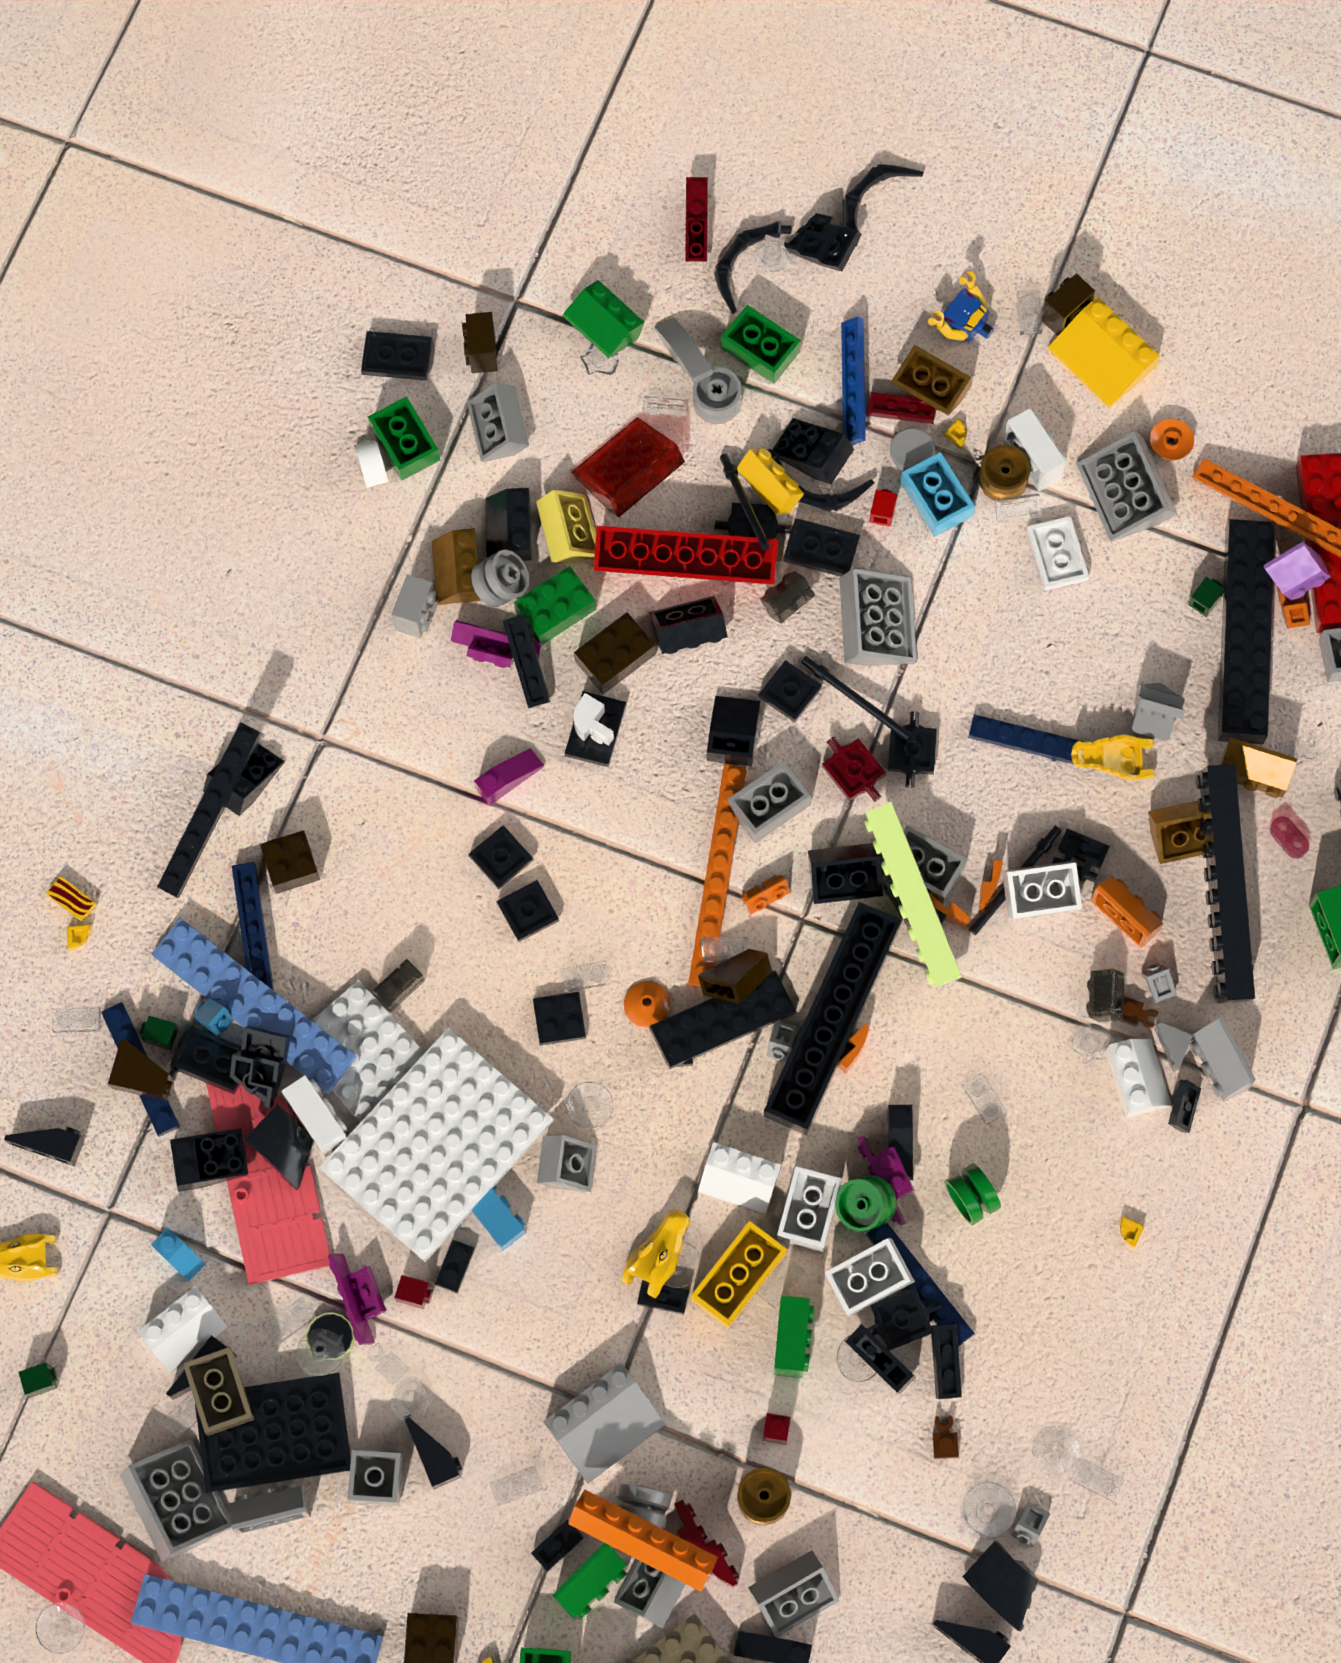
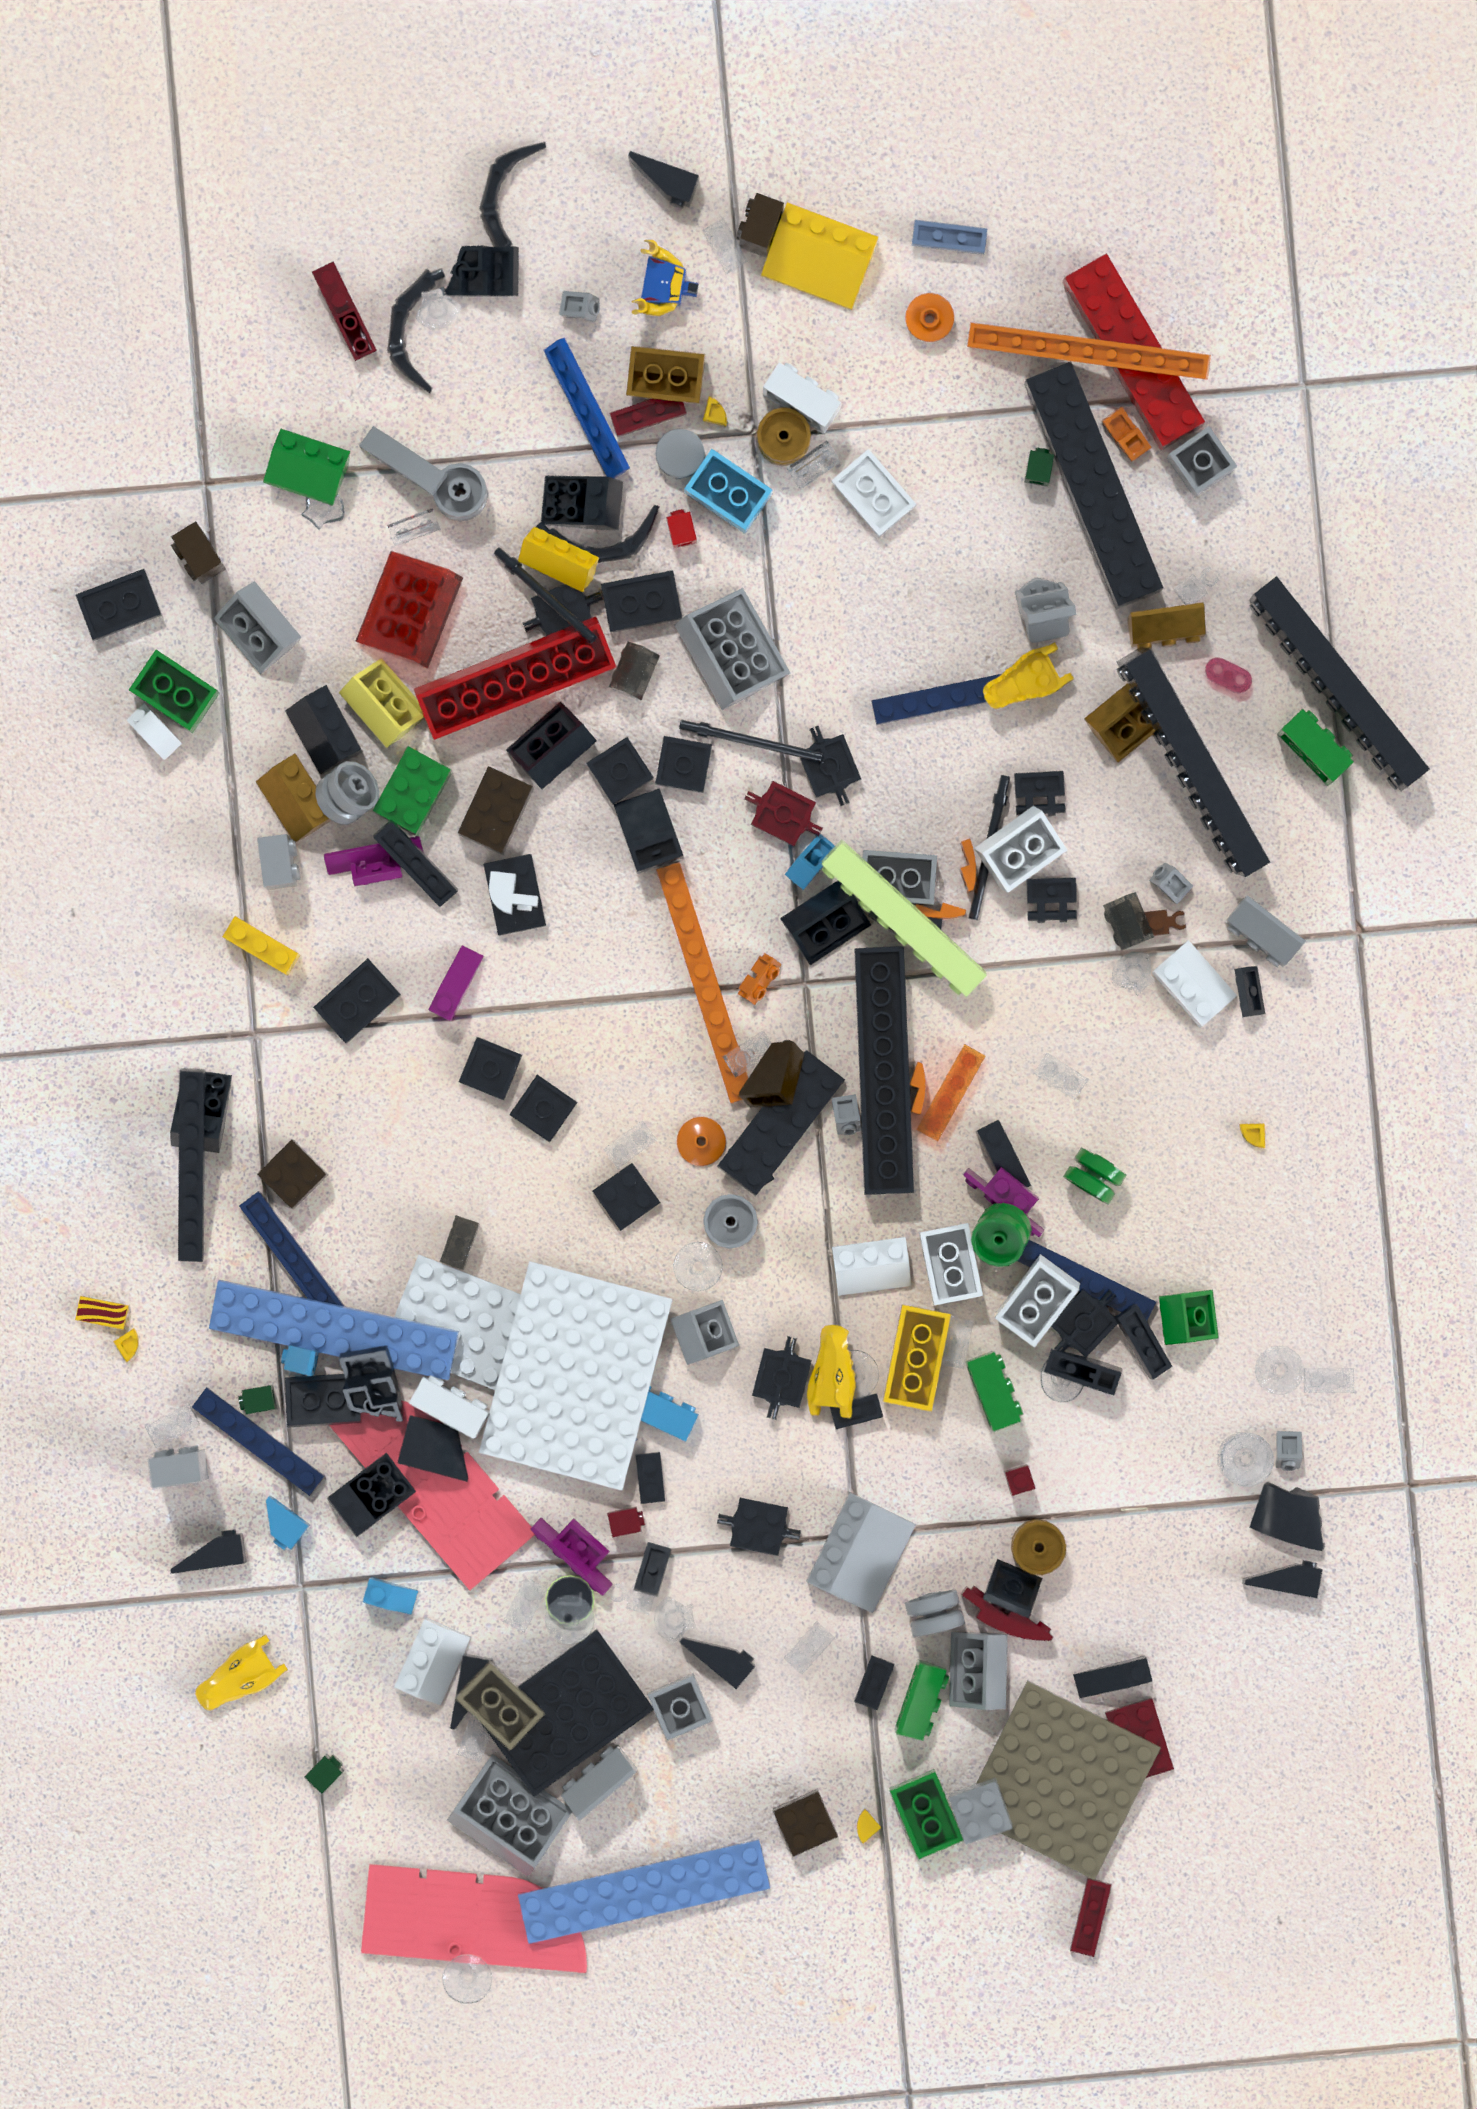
camera: 30 degrees left, 15 degrees up
(59, 1050) = (178, 1468): none -> light grey brick
(122, 1148) = (284, 1524): none -> dark azure slope
(139, 1074) = (264, 1450): dark brown slope -> none
(365, 667) = (261, 945): none -> yellow brick
(415, 1345) = (652, 1569): none -> black plate
(419, 750) = (357, 1001): none -> black plate
(527, 1356) = (758, 1526): none -> black plate
(613, 1236) = (781, 1377): none -> black plate
(637, 1093) = (716, 1217): none -> light grey wheel
(642, 1540) = (953, 1646): orange brick -> none
(722, 1521) = (1012, 1588): none -> black plate
(734, 671) = (620, 770): none -> black plate
(760, 344) = (476, 416): green brick -> none
(769, 801) = (719, 888): light grey slope -> none
(793, 1593) = (1106, 1618): light grey slope -> none
(851, 818) = (809, 862): none -> dark azure slope
(881, 1066) = (951, 1092): none -> clear orange plate
(888, 302) = (579, 305): none -> light grey bracket
(945, 1443) = (1176, 1414): reddish brown plate -> none
(997, 1360) = (1188, 1317): none -> green slope
(1010, 243) = (670, 181): none -> black slope
(1052, 941) = (1051, 891): none -> black plate
(1126, 487) = (909, 390): light grey slope -> none
(1126, 911) = (1110, 827): orange slope -> none
(1173, 1043) = (1214, 936): light grey slope -> none
(1218, 387) = (949, 237): none -> sand blue plate
(1297, 571) = (1118, 406): slope -> none

